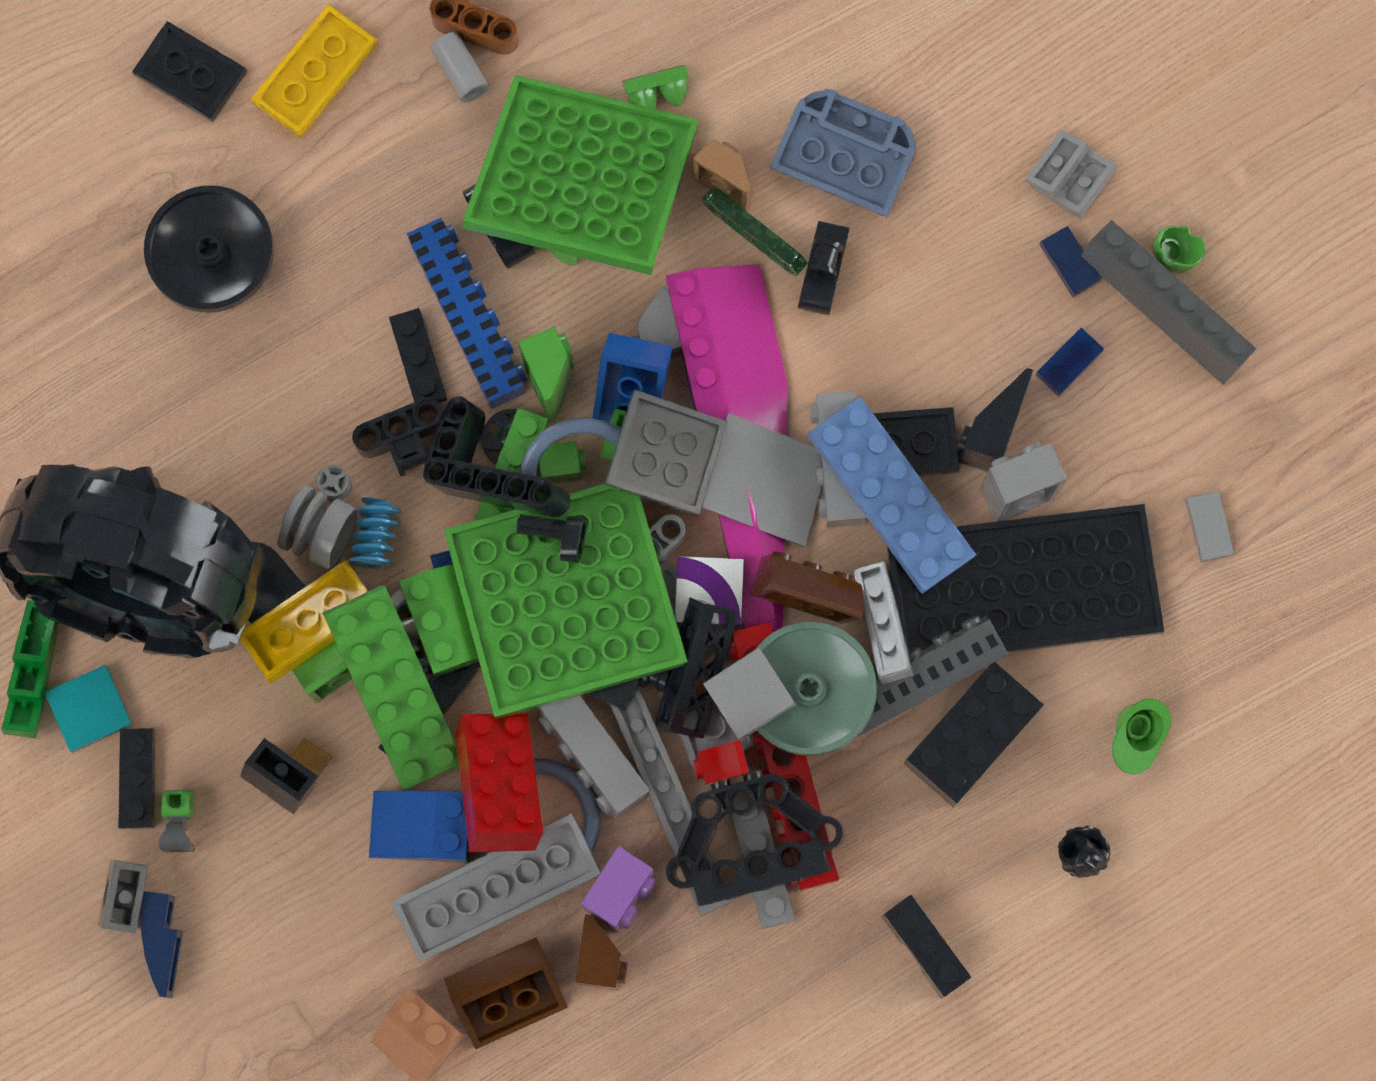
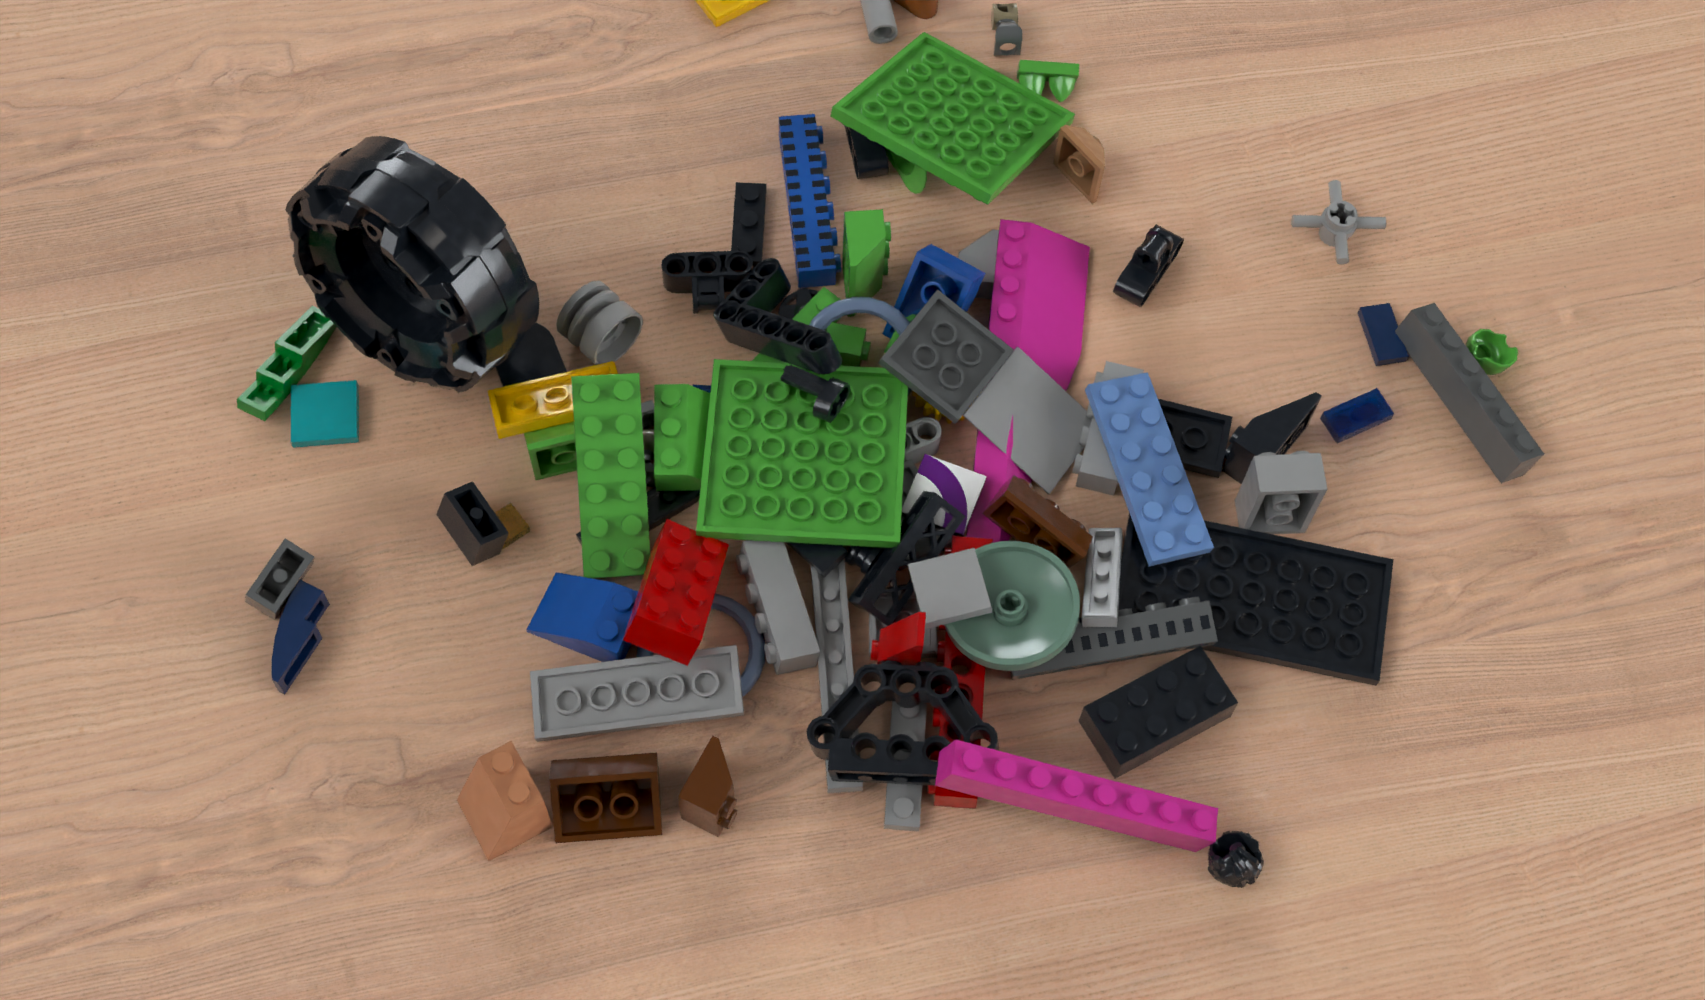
camera: 15 degrees right, 15 degrees down
(136, 778) = (340, 488): black plate -> none
(177, 808) = (363, 523): leg -> none
(208, 249) = (599, 77): black dish -> none
(330, 477) = (634, 292): light grey wheel -> none
(374, 533) = (650, 348): dark azure piece -> none
(593, 32) = (1005, 22): none -> dark grey leg
(619, 890) = (755, 728): medium lavender brick -> none
(754, 231) = (1094, 217): clear green beam -> none
(846, 150) = (1202, 178): sand blue plate -> none
(927, 853) = (1076, 796): none -> dark pink brick
(927, 946) = (1048, 904): black arch -> none
(987, 165) = (1338, 222): none -> light grey bar
(1071, 174) = (1406, 263): light grey slope -> none
(1140, 735) = (1327, 766): bright green piece -> none
(1209, 527) = (1451, 604): light grey tile -> none

